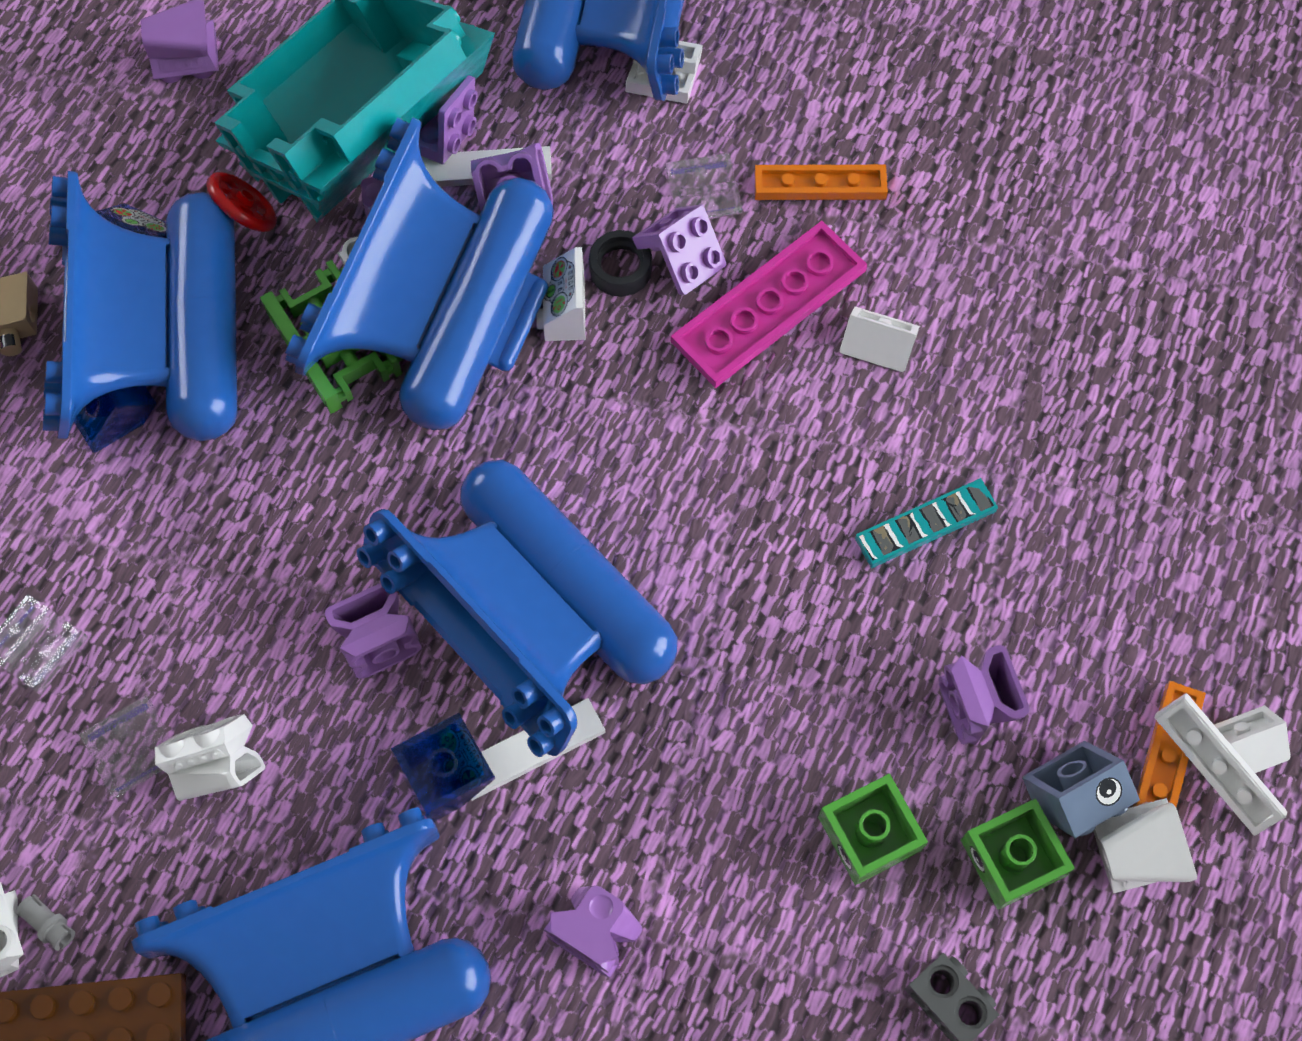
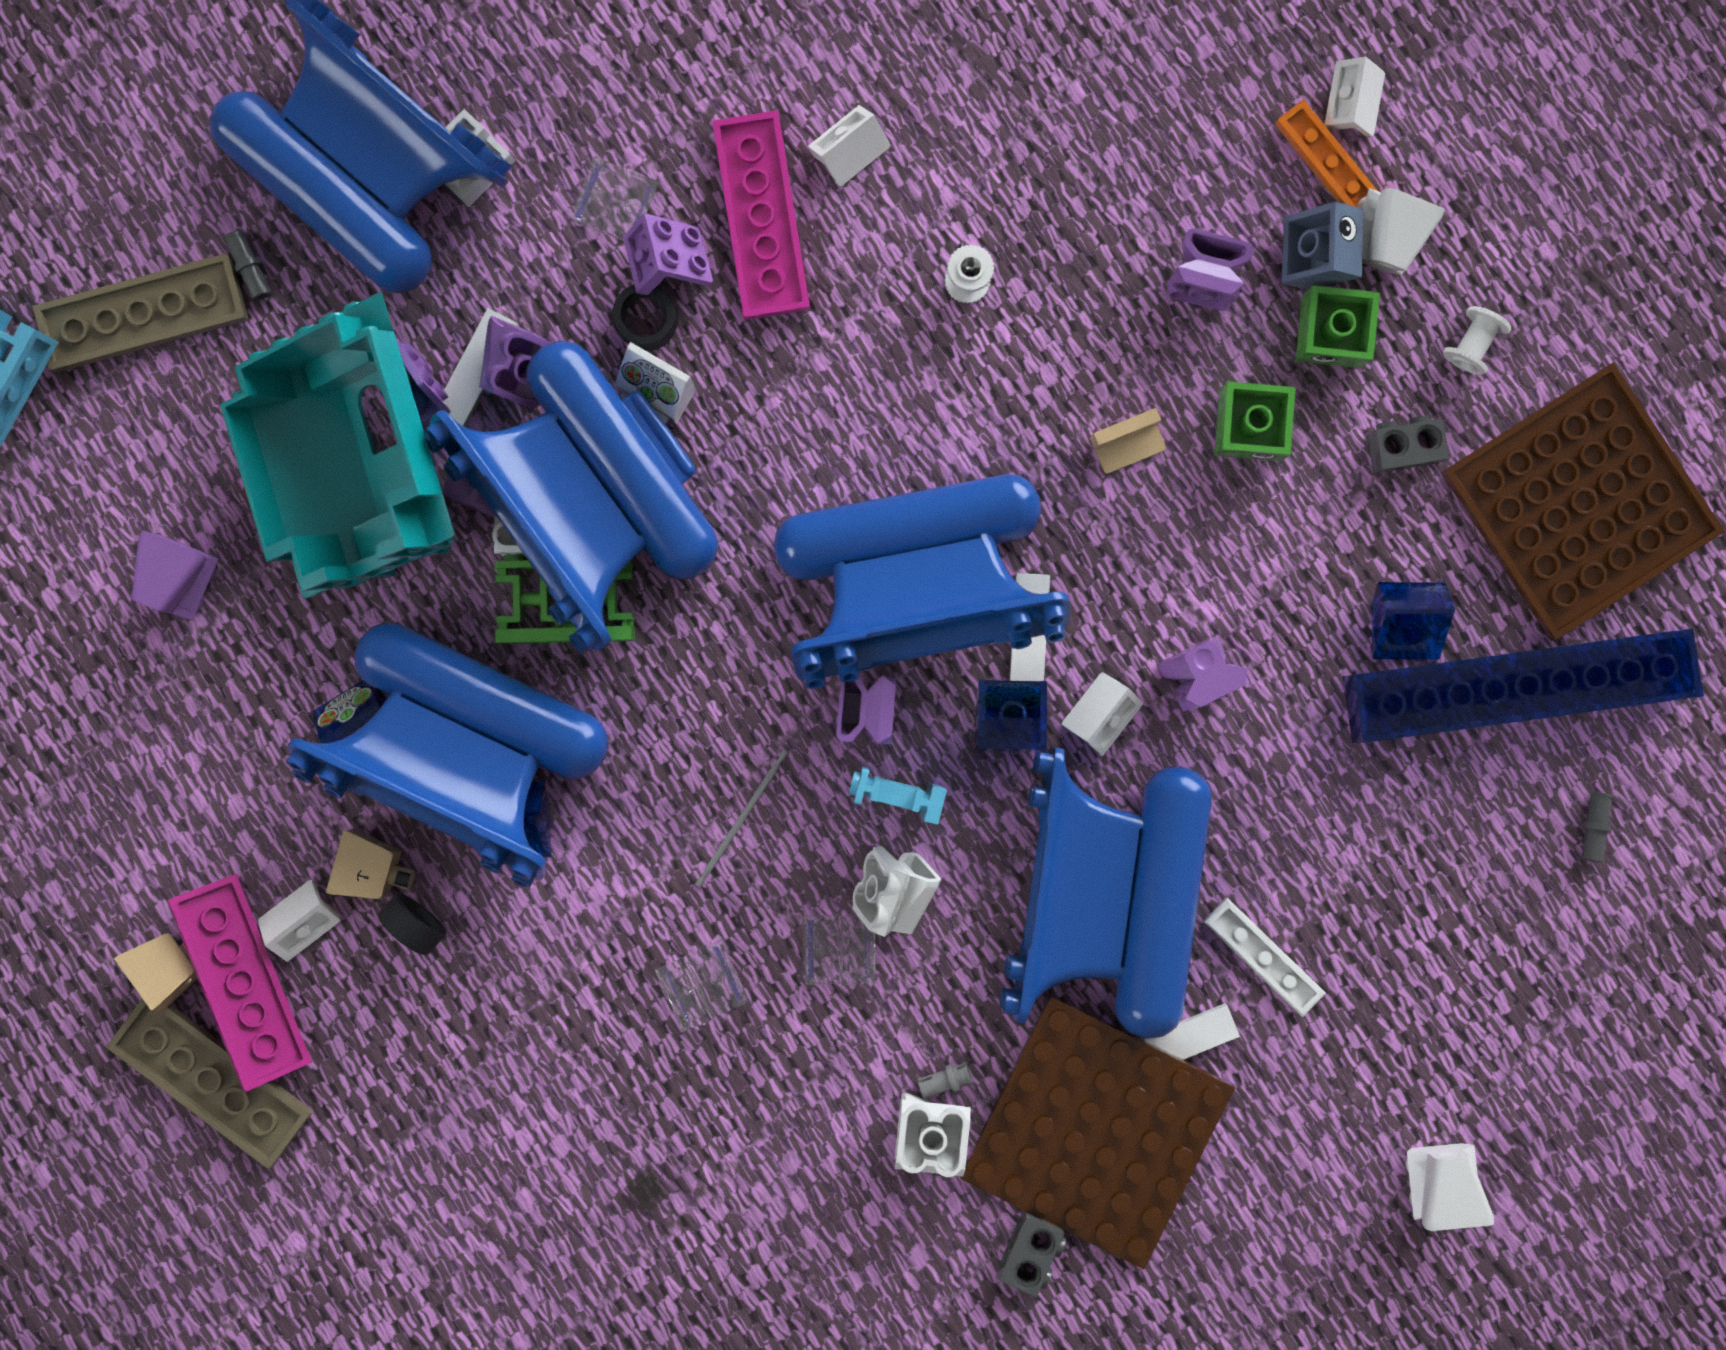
camera: 60 degrees left, 20 degrees up
(214, 591) = (742, 817): none -> light grey piece
(241, 202) = (385, 608): red plate -> none
(303, 712) = (899, 794): none -> medium azure fence
(499, 860) = (1102, 713): none -> white panel
(778, 727) = (1128, 441): none -> tan panel
(821, 182) = (671, 96): orange plate -> none
(833, 491) = (972, 260): none -> white hose
(926, 523) = (1033, 216): tile -> none
(1102, 1005) = (1477, 340): none -> white hose
(1220, 764) = (1365, 129): white tile -> none

